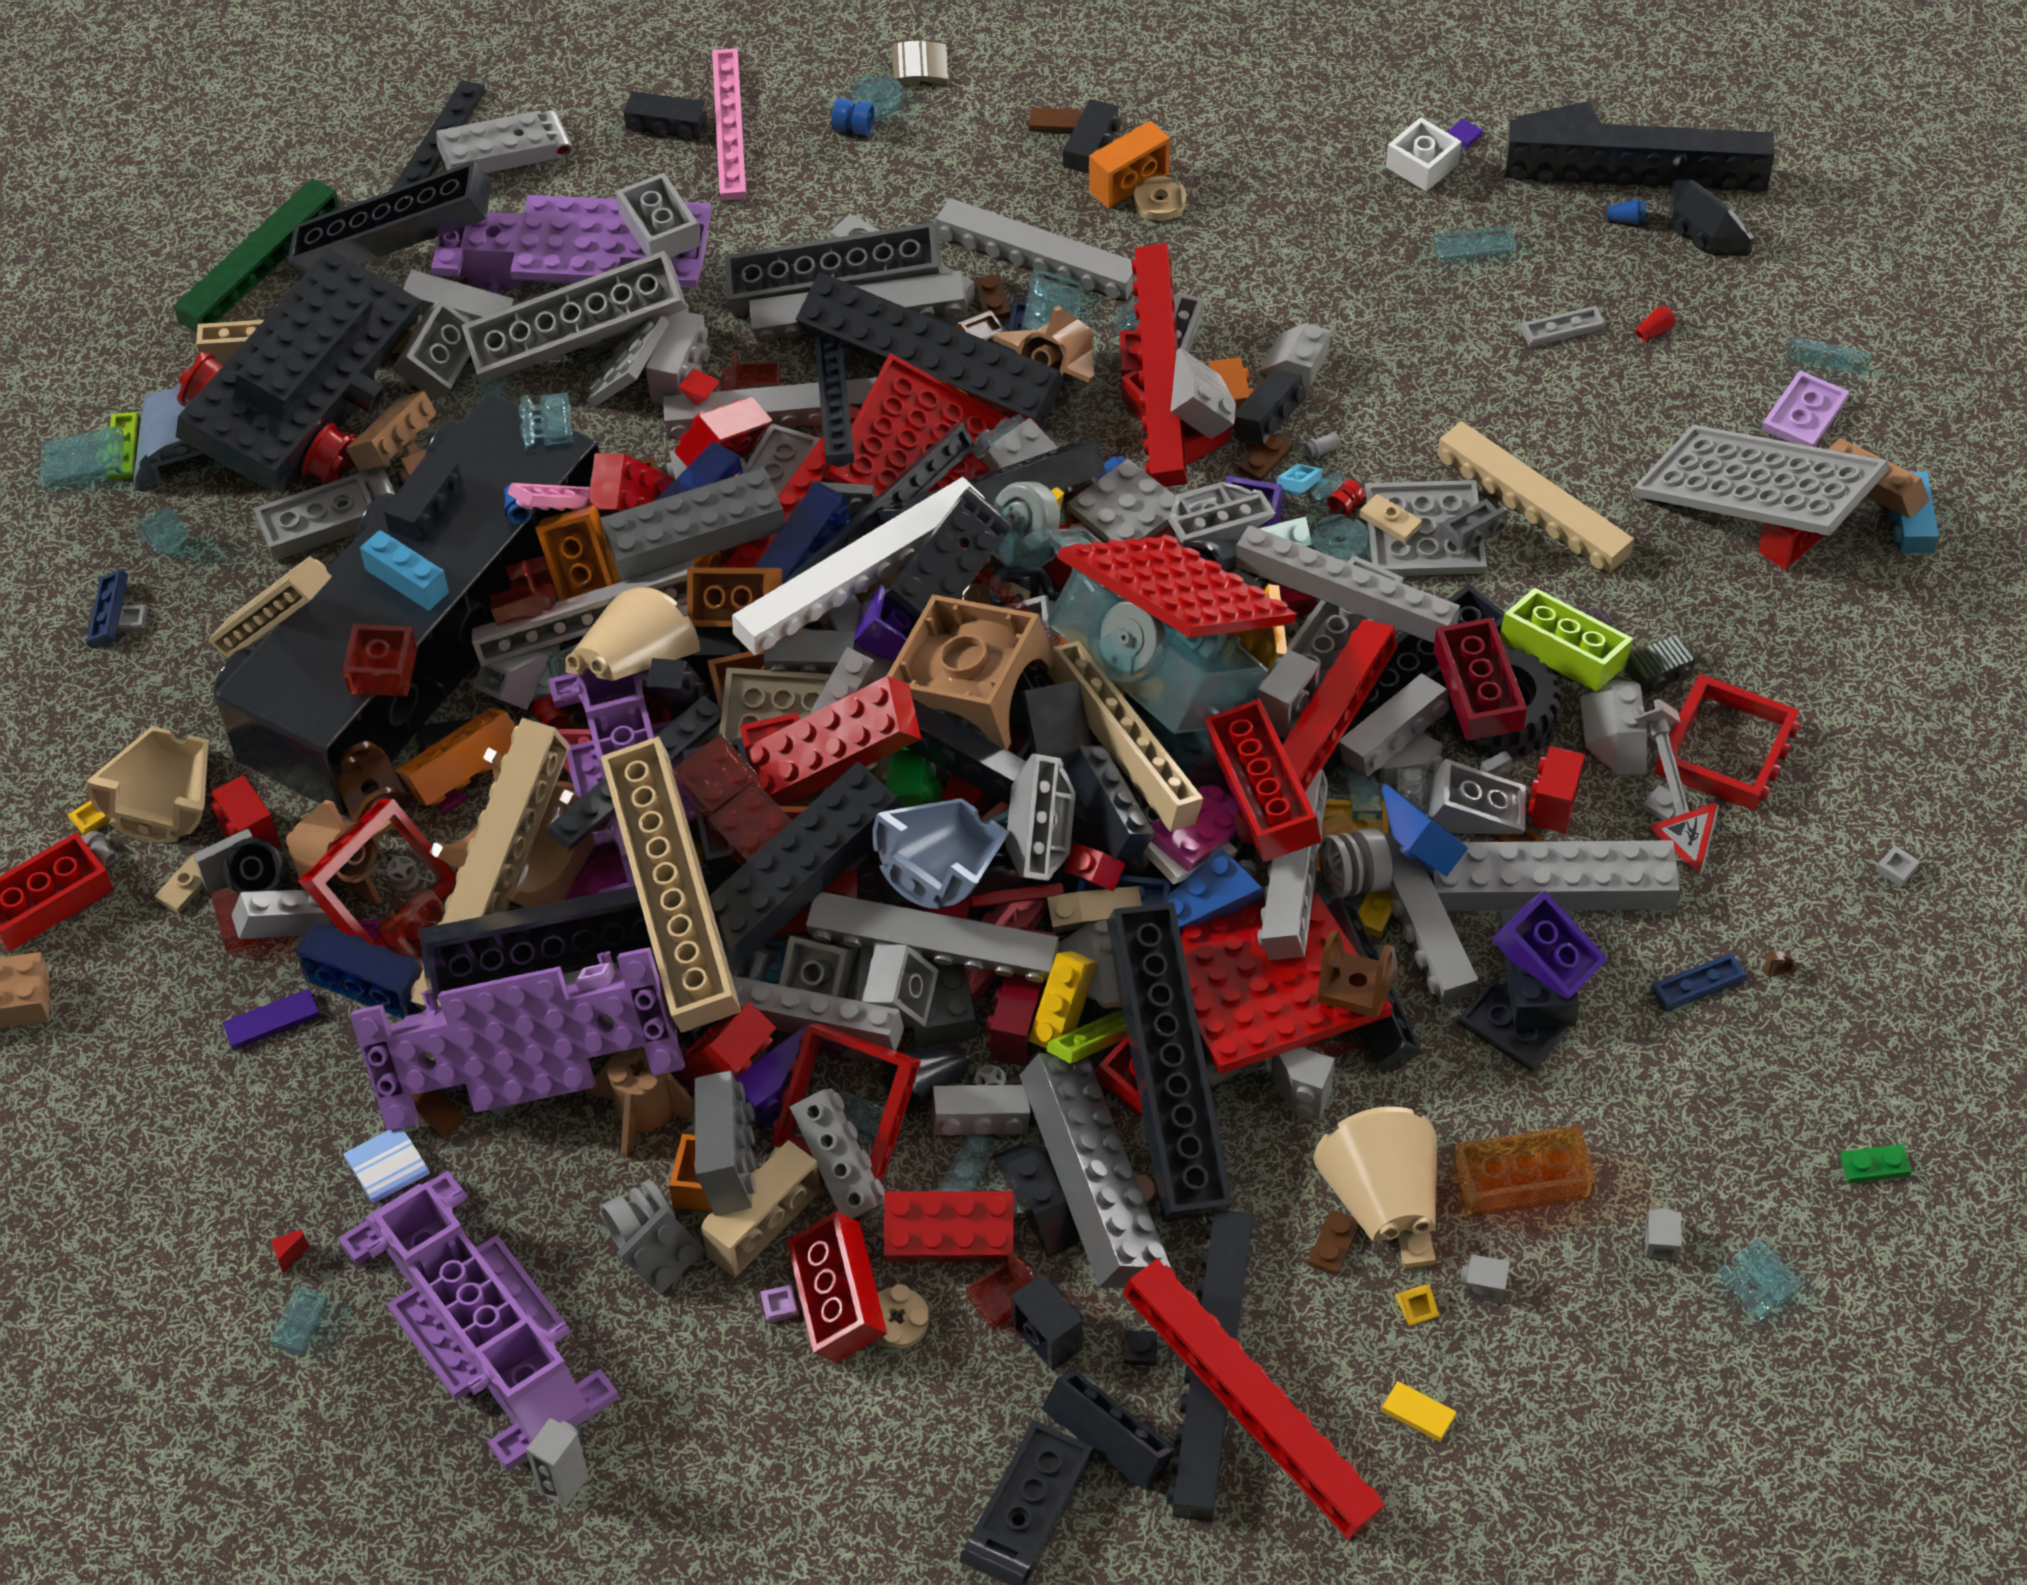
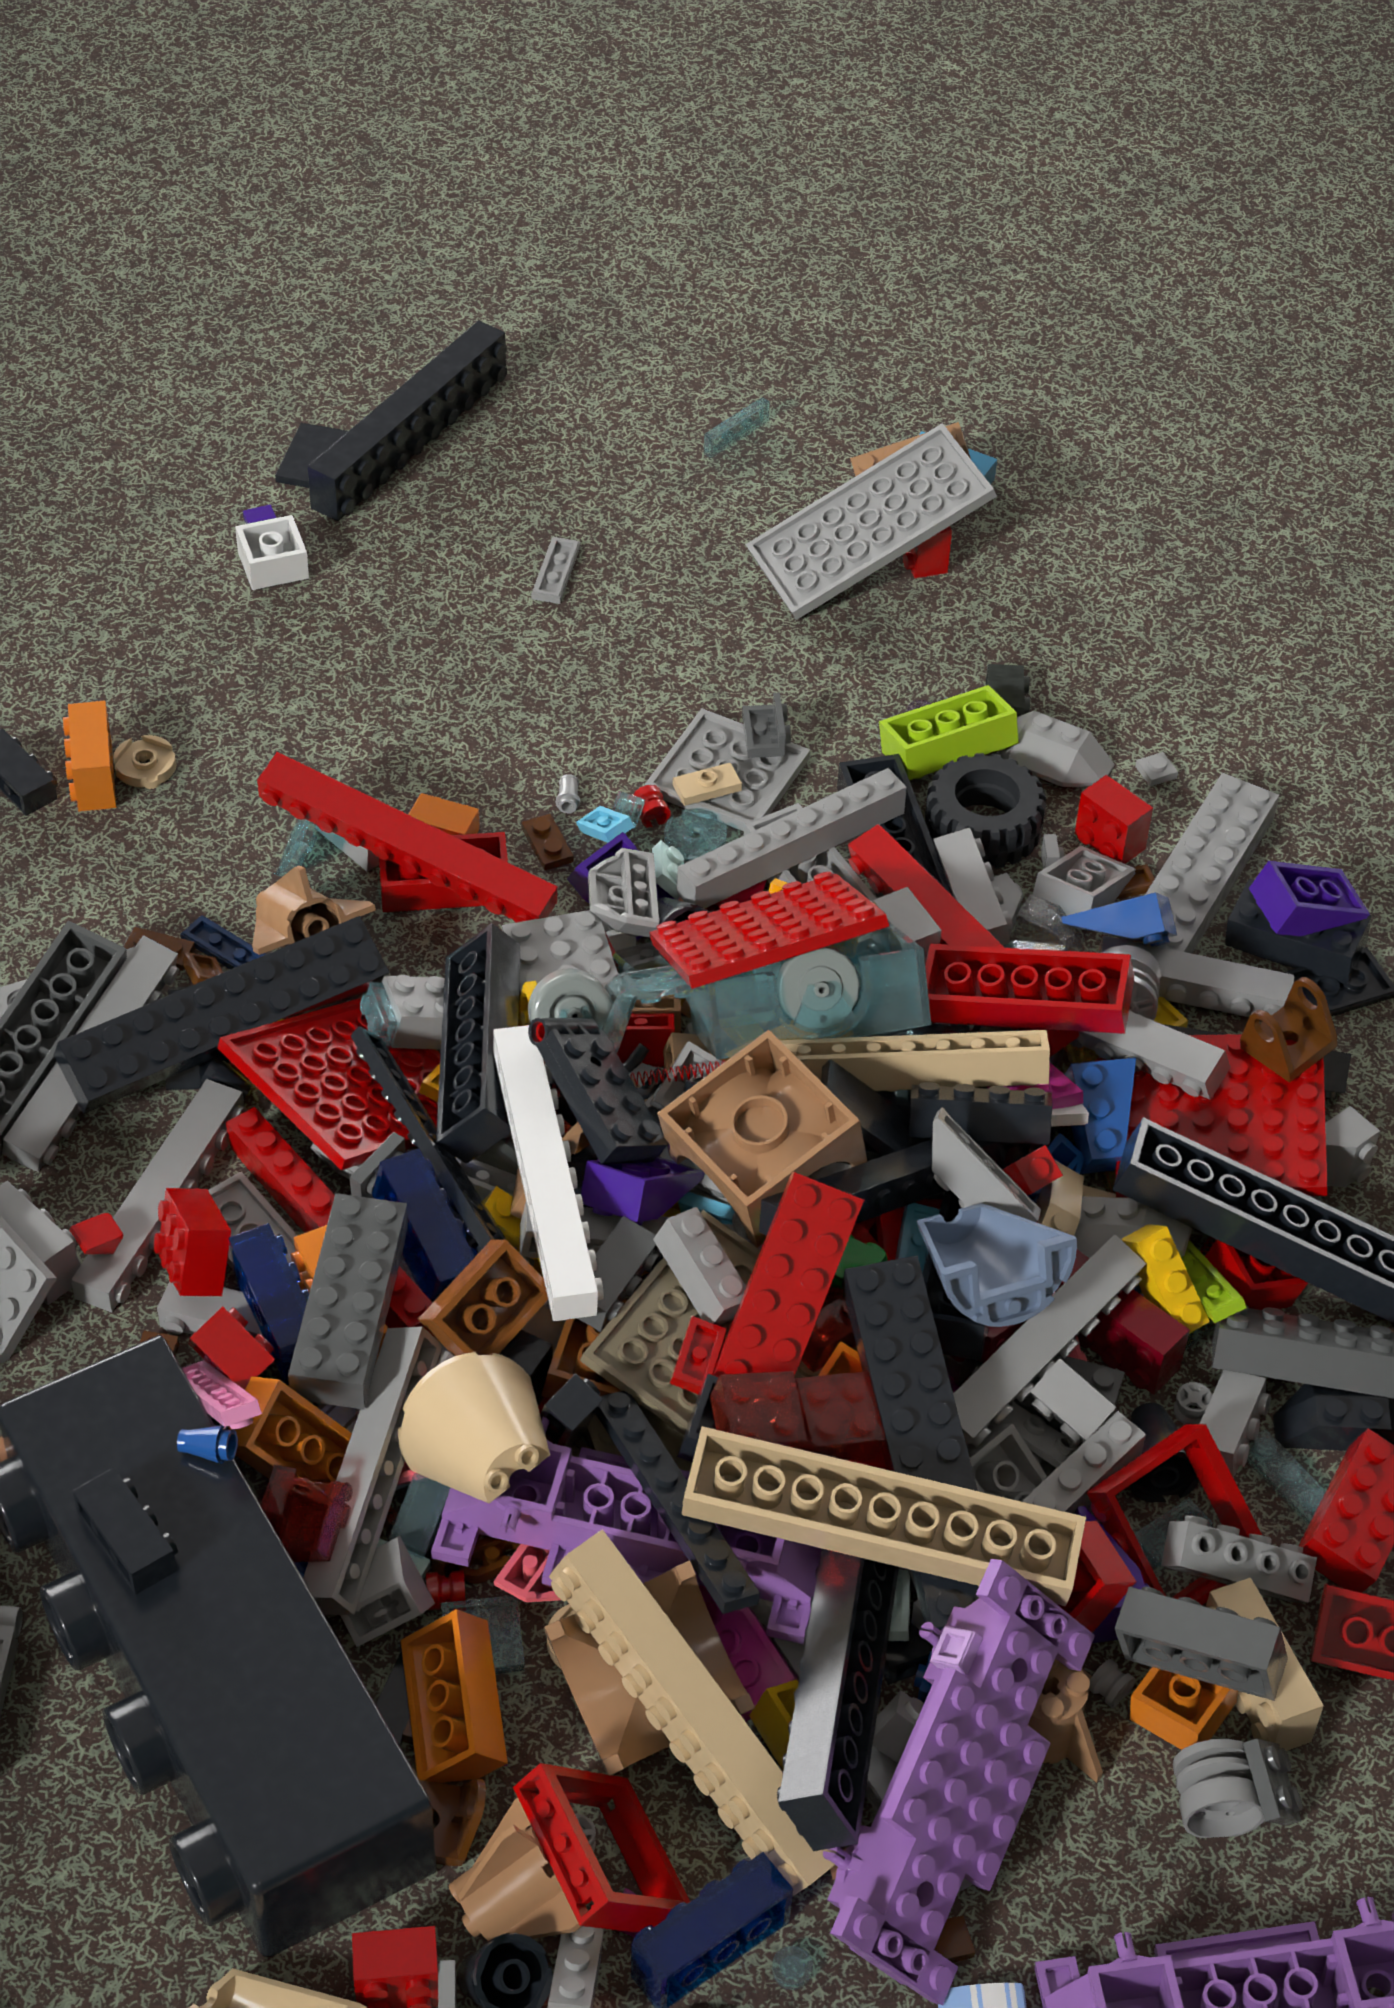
camera: 65 degrees left, 5 degrees down
(270, 607) = (151, 1777): tan brick -> none
(380, 659) = (357, 1673): clear red brick -> none
(402, 927) = (690, 1842): clear red brick -> none
(404, 570) = (229, 1595): dark azure brick -> none
(555, 416) = (98, 1353): clear light blue plate -> none
(750, 375) = (101, 1191): clear red piece -> none
(779, 1304) = (1367, 1712): lavender tile -> none
(834, 403) = (239, 1117): black plate -> none
(1035, 248) = (129, 881): light grey brick -> none
(1046, 293) = (217, 903): clear light blue plate -> none
(1128, 351) = (336, 873): red plate -> none
(1201, 396) = (488, 830): light grey slope -> none
(1269, 406) = (498, 802): black brick -> none
(1299, 352) = (442, 756): light grey slope -> none
(1474, 243) = (406, 576): clear light blue plate -> none
(1479, 679) = (983, 795): dark red brick -> none
(1535, 497) = (749, 680): tan brick -> none
(1629, 212) = (462, 461): blue cone -> none
(1656, 323) = (608, 509): red cone -> none
(1688, 829) = (1200, 764): light grey piece -> none
(1699, 982) = (1365, 840): dark blue tile -> none
(1707, 221) = (517, 418): black wedge -> none
(1716, 783) = (1091, 718): red window -> none
(1779, 963) = (1379, 781): reddish brown tile -> none
(1805, 410) = (784, 472): lavender plate -> none
(1898, 866) = (1320, 659): light grey plate -> none

